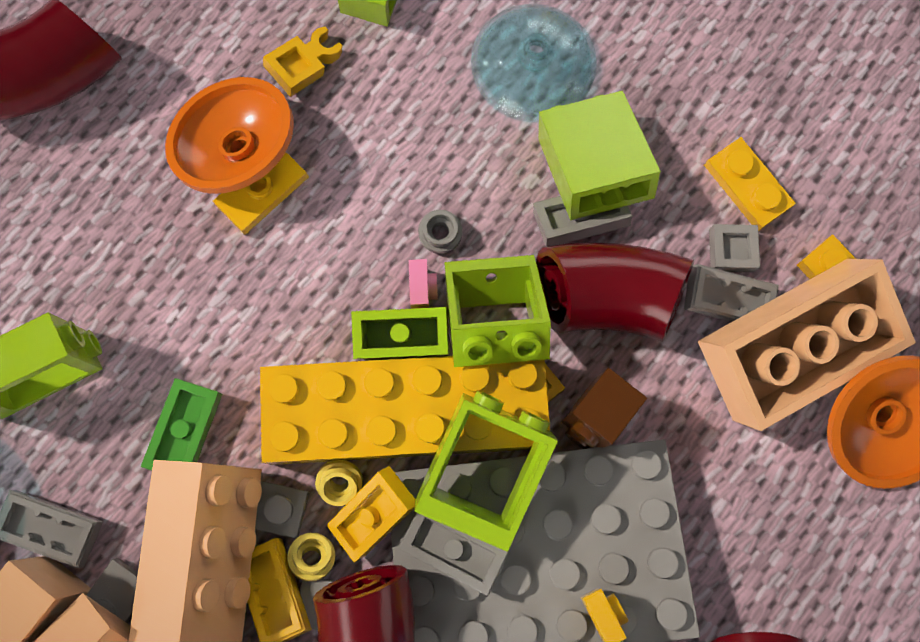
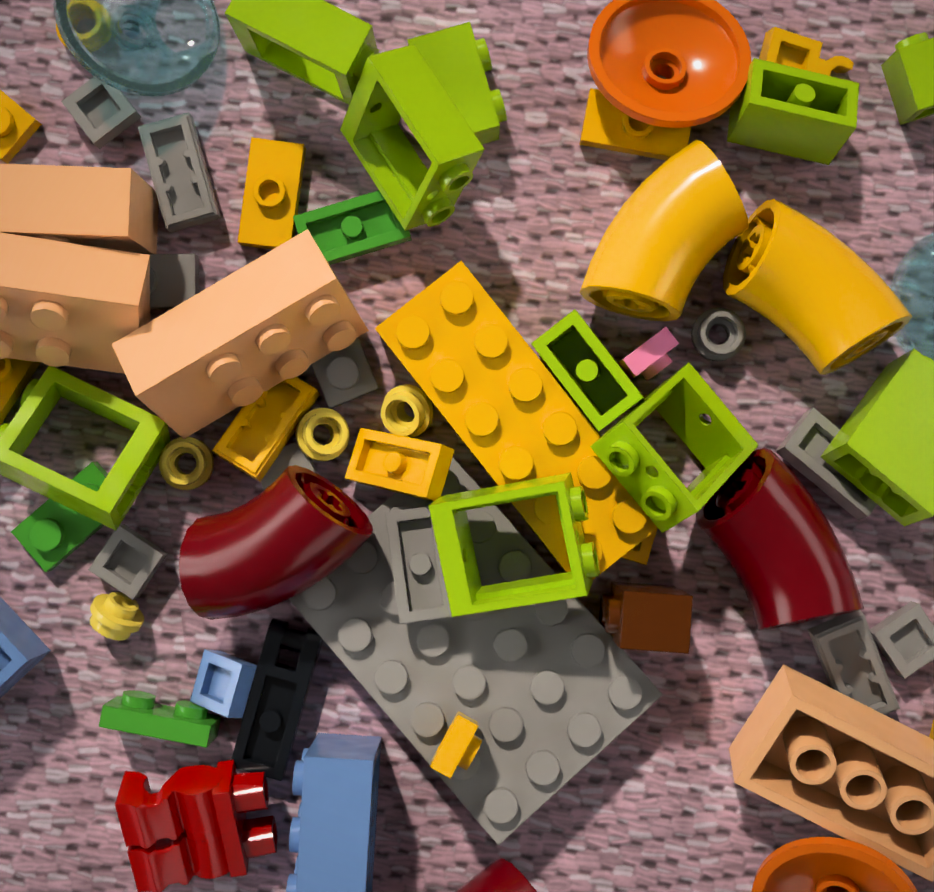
camera: 65 degrees right, 10 degrees up
(108, 319) = (404, 86): none -> lime window
(112, 471) = (271, 193): none -> yellow plate
(142, 290) = (461, 68): none -> lime brick
(327, 82) = (794, 112): none -> lime brick
(348, 219) = (665, 237): none -> yellow brick
(451, 148) = (811, 287): none -> yellow brick

